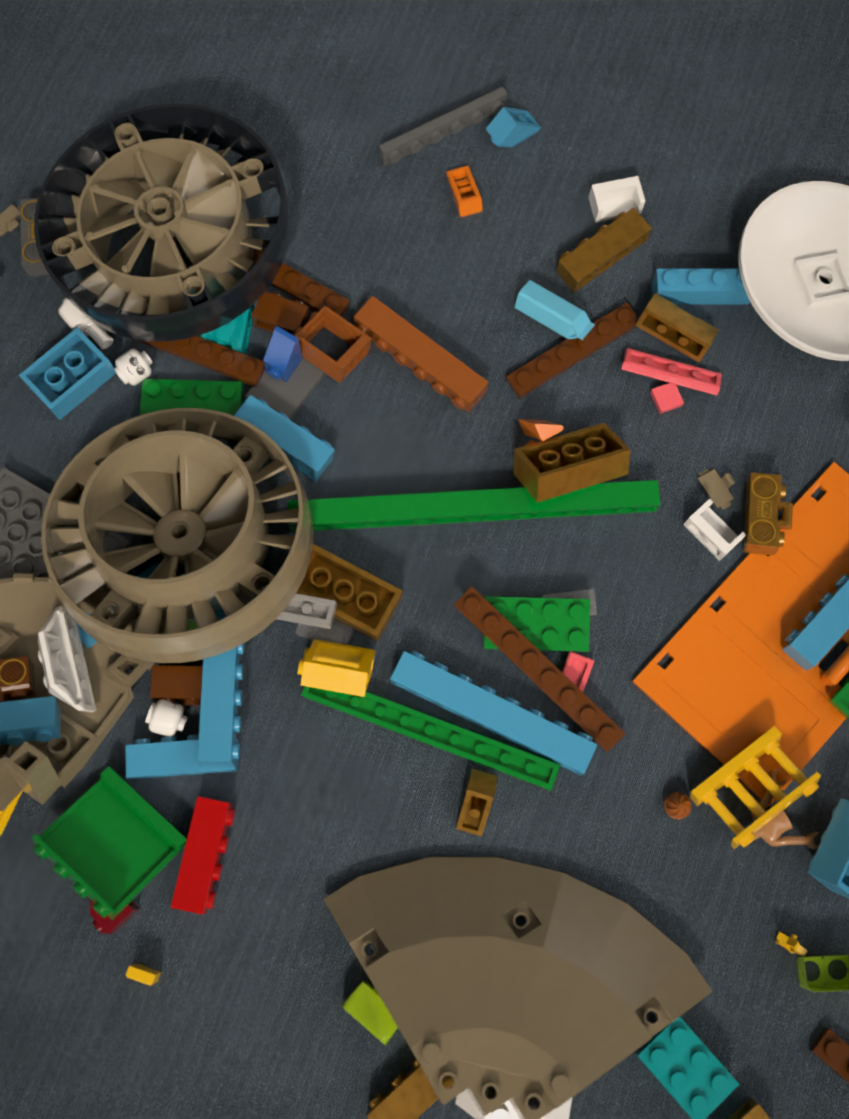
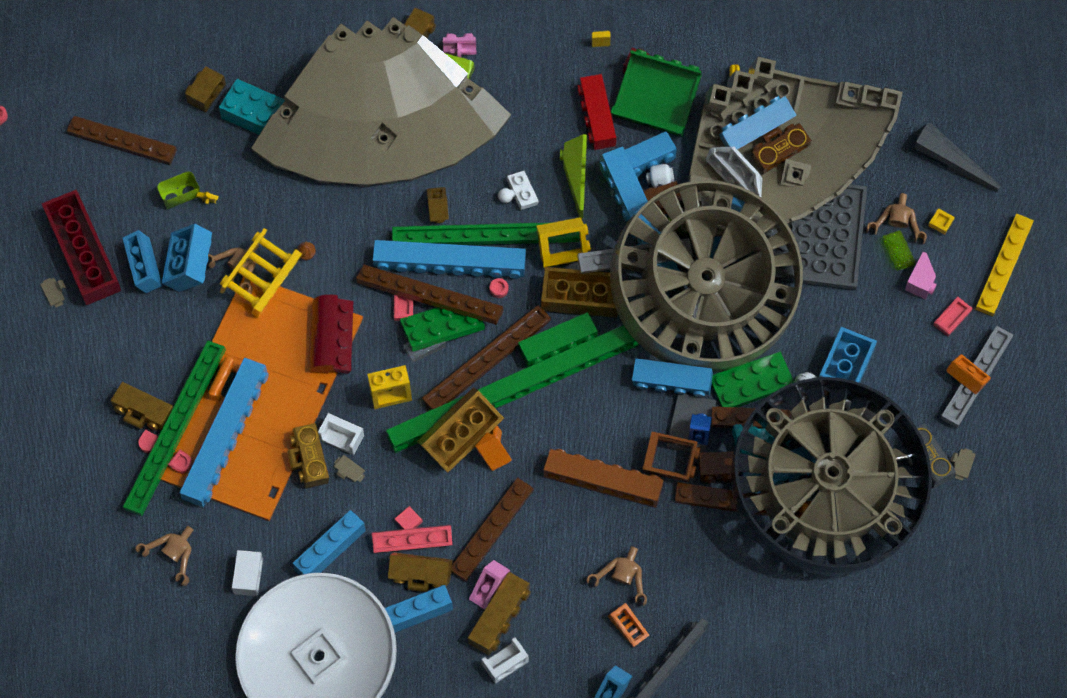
camera: 160 degrees right, 10 degrees down
(269, 785) = (574, 166): none -> lime wedge
(349, 1049) = (459, 45): none -> bright pink hips
(357, 778) = (520, 189): none -> white plate
(400, 543) = (557, 339): none -> green brick
(443, 650) = (498, 288): none -> coral tile
(446, 242) = (624, 572): none -> medium nougat piece
(497, 556) = (487, 358): none -> reddish brown plate
(553, 311) = (516, 545): medium azure piece -> none
(600, 285) = (488, 583): none -> bright pink slope
(646, 551) = (397, 382): none -> yellow window
(685, 663) = (331, 334): none -> dark red brick
(774, 395) = (330, 545): none -> dark azure brick

